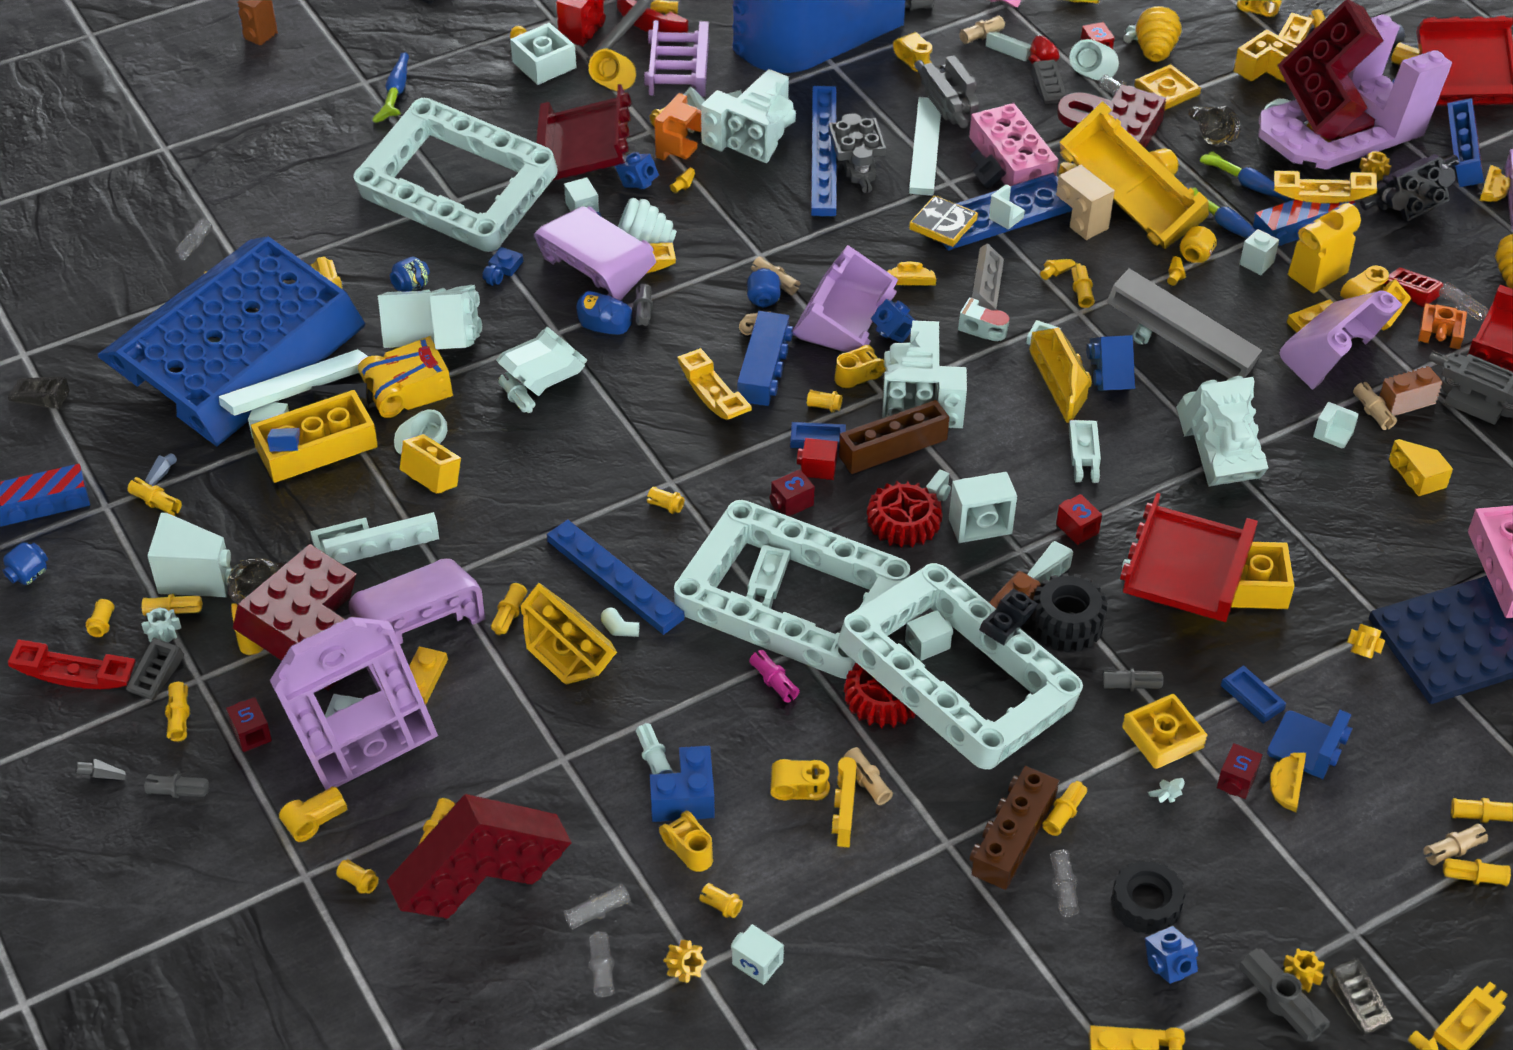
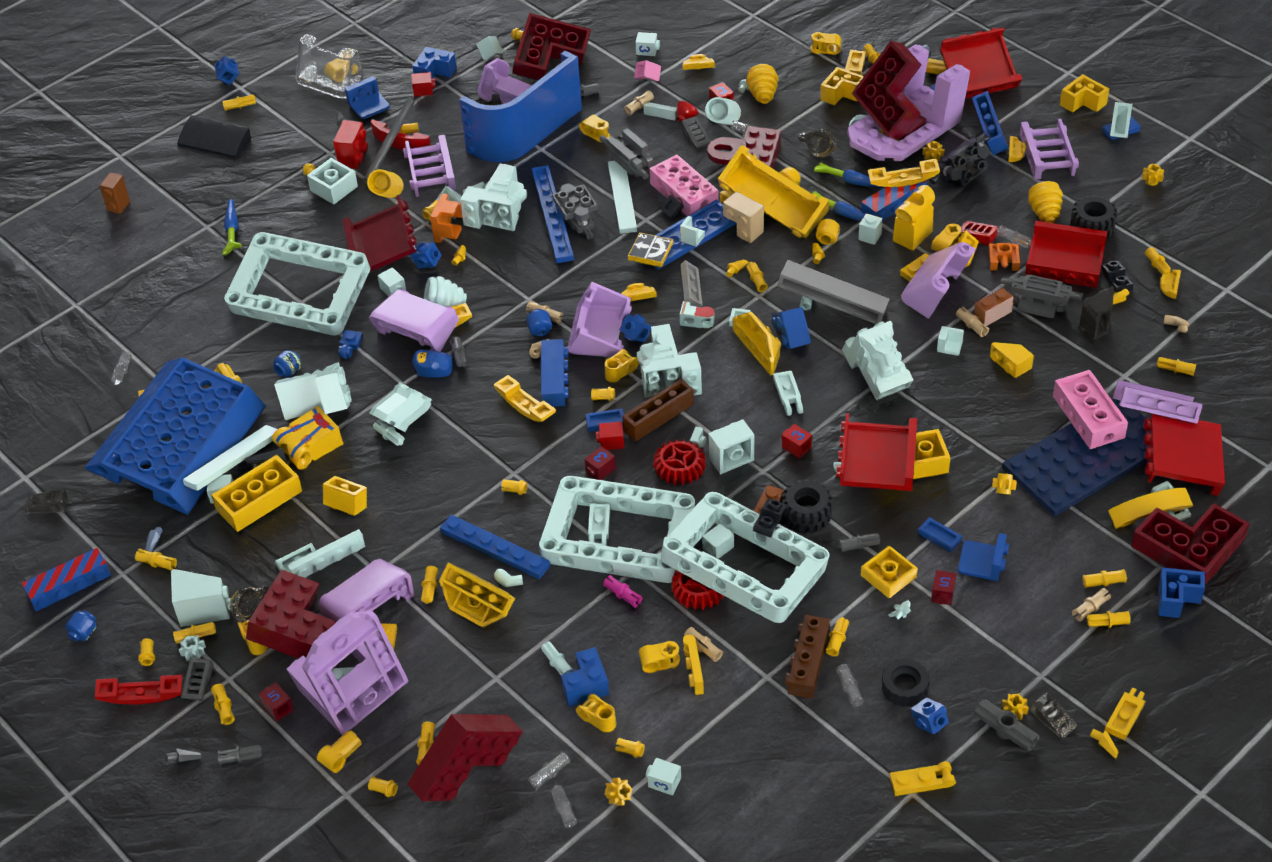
camera: 10 degrees left, 0 degrees up
(283, 439) = (239, 500): blue slope -> none
(425, 422) = (331, 468): light aqua cap -> none
(1053, 562) = (787, 474): light aqua slope -> none
(1170, 84) = (779, 119): yellow tile -> none
(1287, 779) = (975, 586): yellow plate -> none

